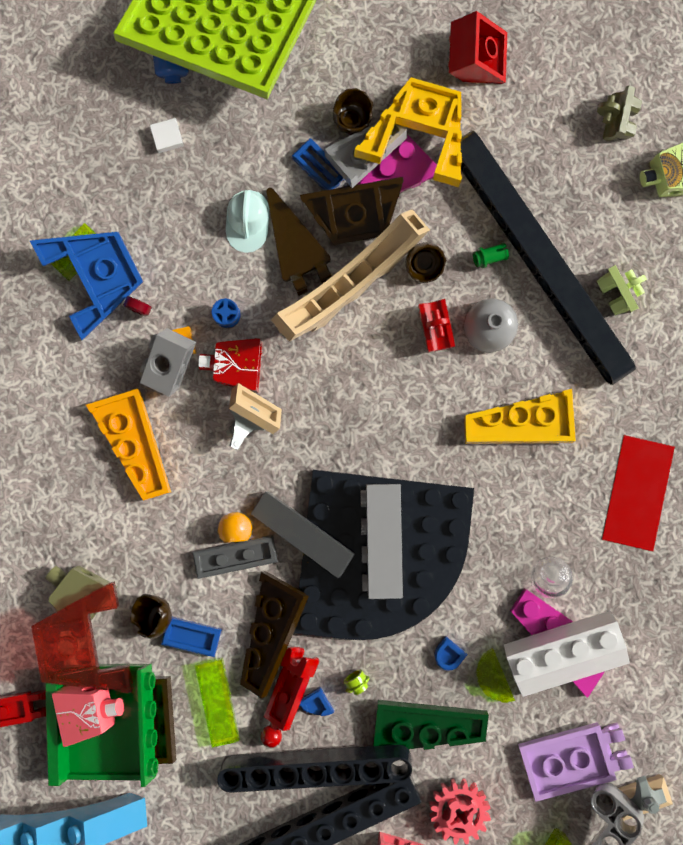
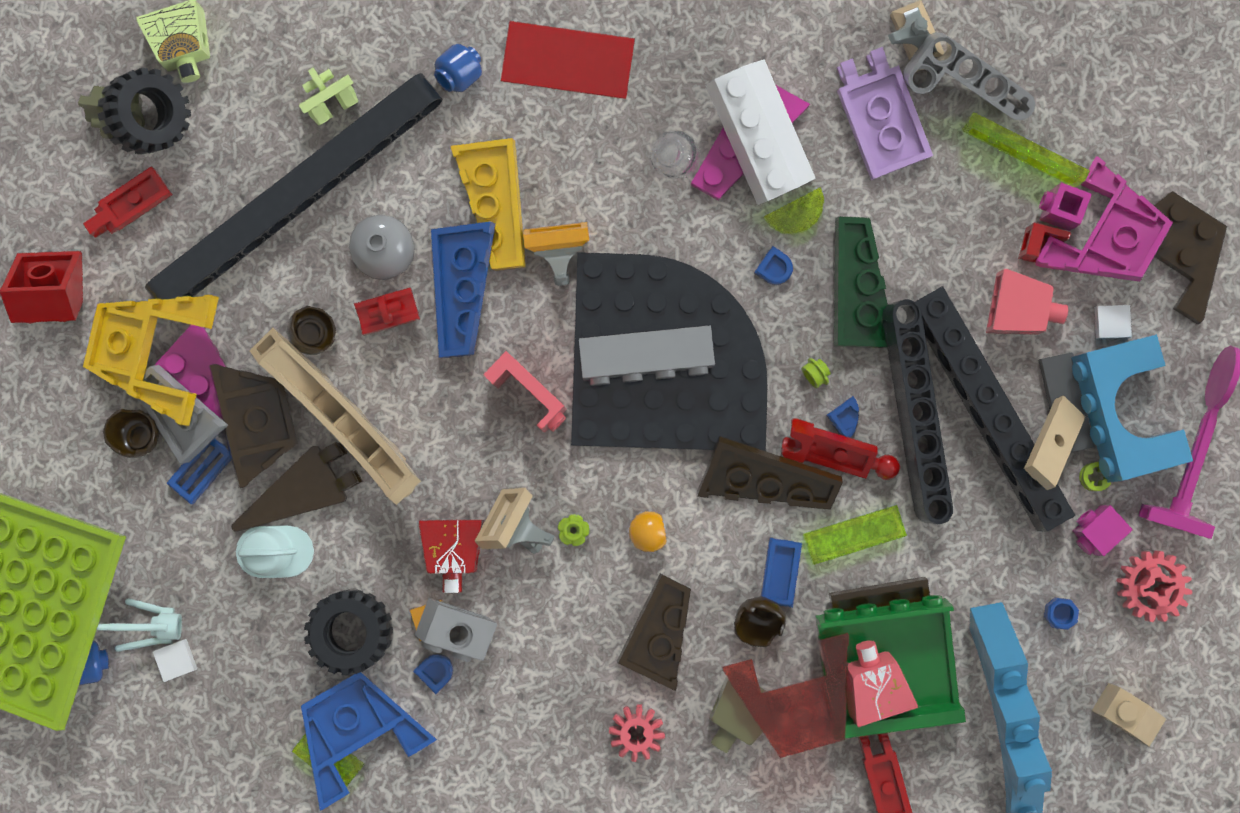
camera: 85 degrees left, 0 degrees up
(80, 504) = (624, 732): none -> coral gear
(129, 432) = (546, 669): light orange wing -> none
(136, 343) = (435, 671): none -> blue tile
(137, 306) = (390, 675): dark red tile -> none
(151, 529) = (658, 633): none -> dark brown wing
(163, 256) = (322, 641): none -> black tyre
(193, 128) = (165, 626): none -> light aqua plant
(226, 308) = (384, 566): blue wheel -> none
(235, 557) = (682, 529): dark grey tile -> none
(236, 460) = (573, 521): none -> lime plate
(303, 534) = (647, 450): dark grey tile -> none
(382, 423) = (508, 366): none -> coral panel
(451, 818) = (960, 250): coral gear -> none
(459, 388) = (460, 277): none -> blue wing
(481, 471) = (557, 246): none -> light orange piece
(490, 255) = (296, 253): green pin -> none
(542, 122) = (128, 203): none -> red hinge
(631, 155) = (162, 93): none -> black tyre
(637, 400) = (458, 68): none -> blue head

